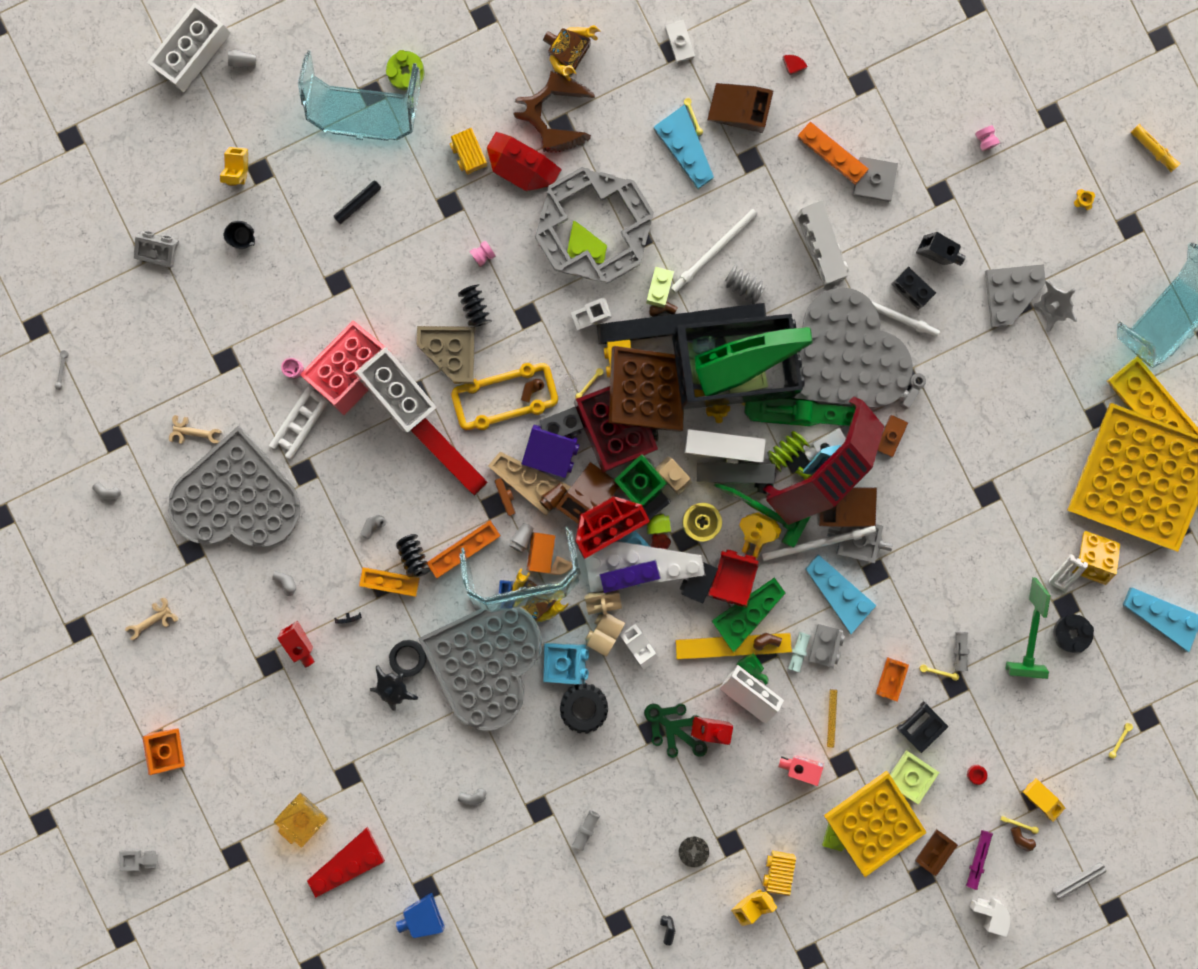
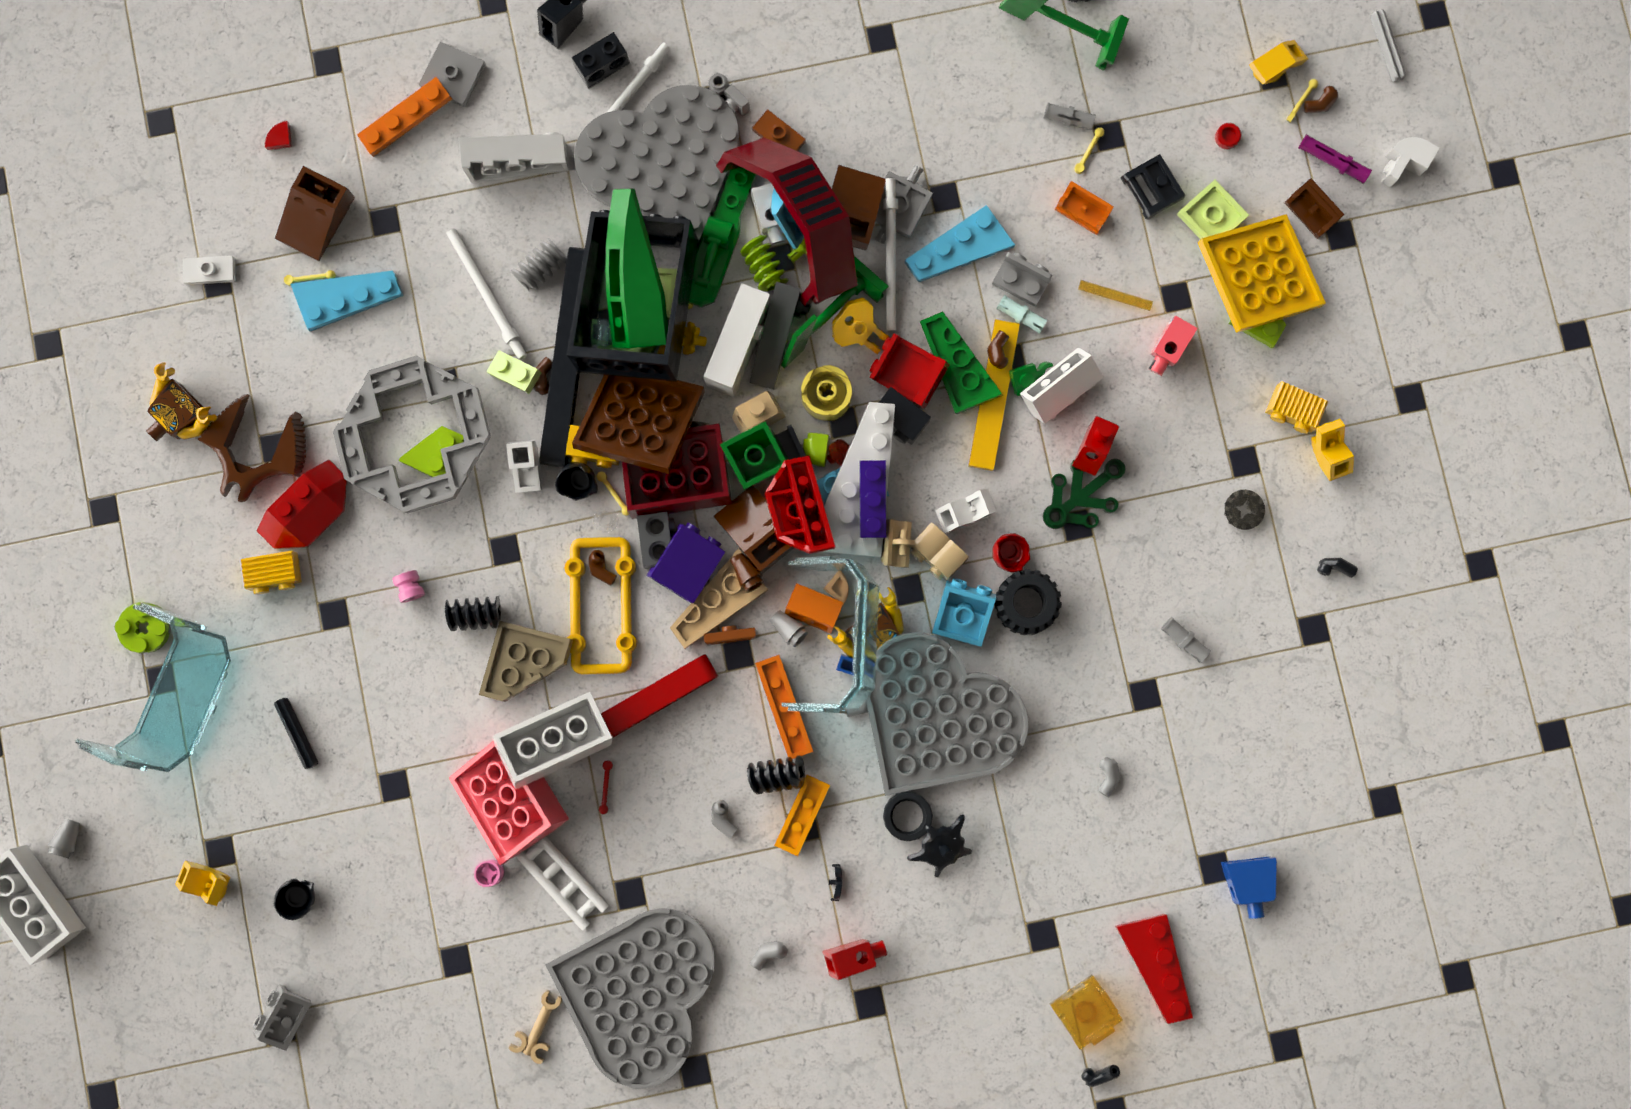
camera: 70 degrees left, 5 degrees down
(255, 836) = (1101, 1076): none -> black arm
(358, 437) = (607, 766): none -> red hinge
(590, 355) = (576, 481): none -> black hair
(617, 687) = (1011, 552): none -> red hair

